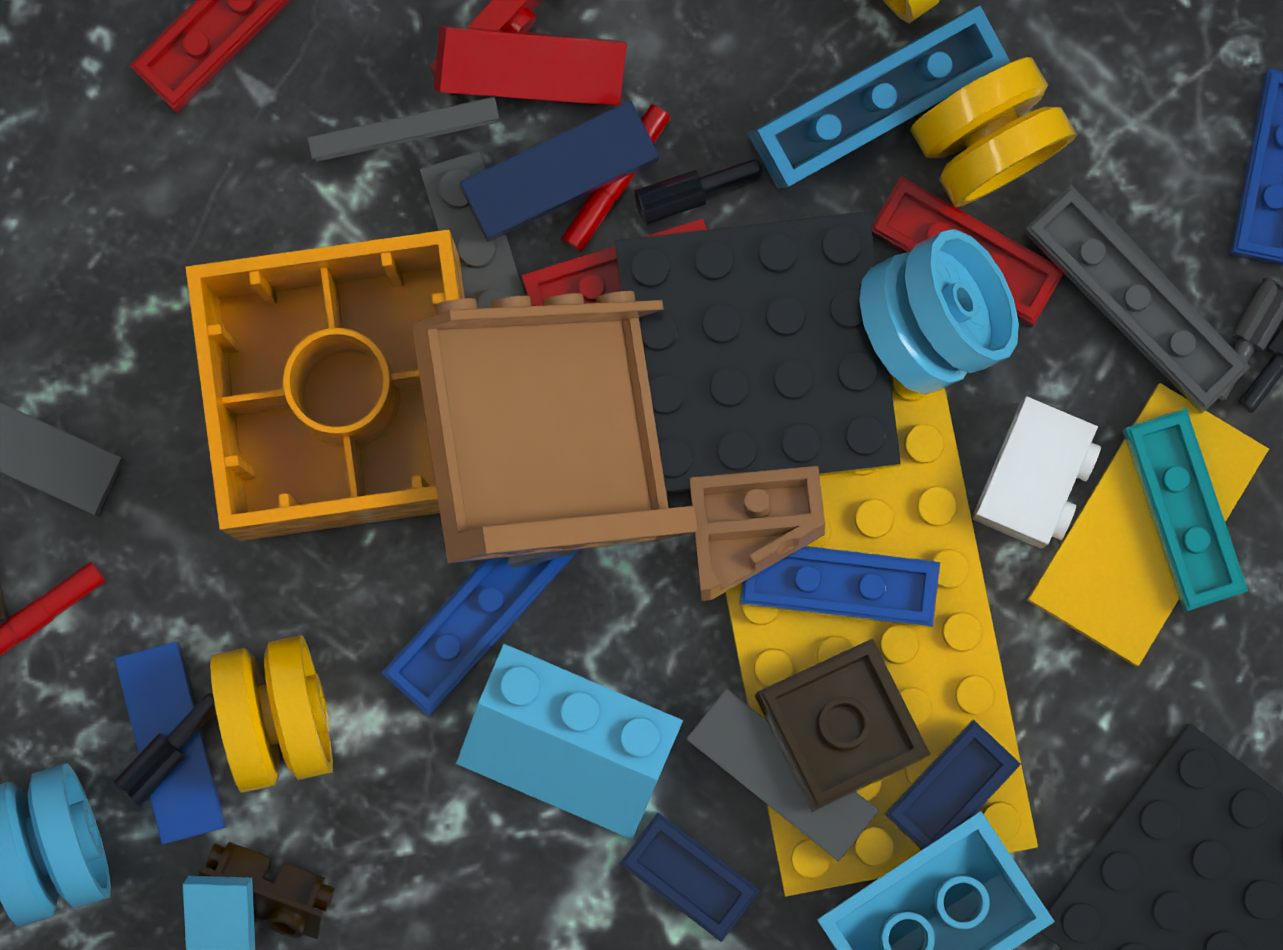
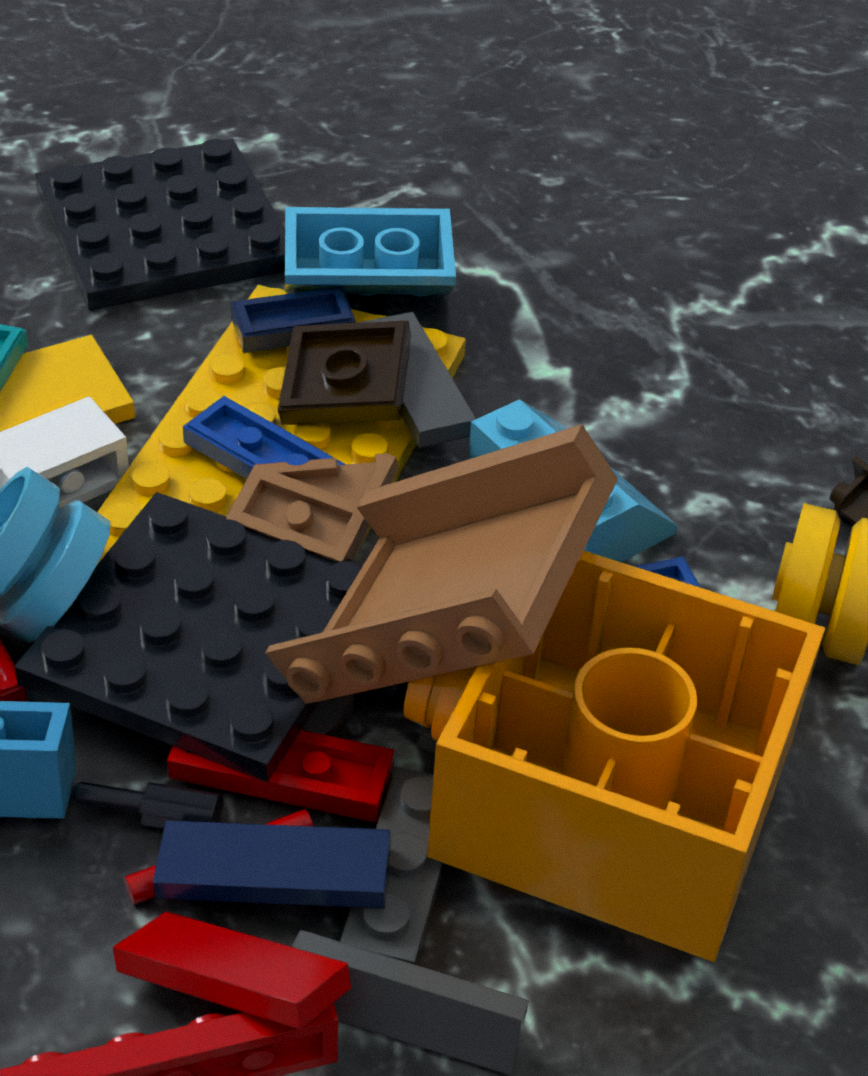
camera: 155 degrees left, 40 degrees down
(689, 877) = (527, 375): dark blue tile -> none

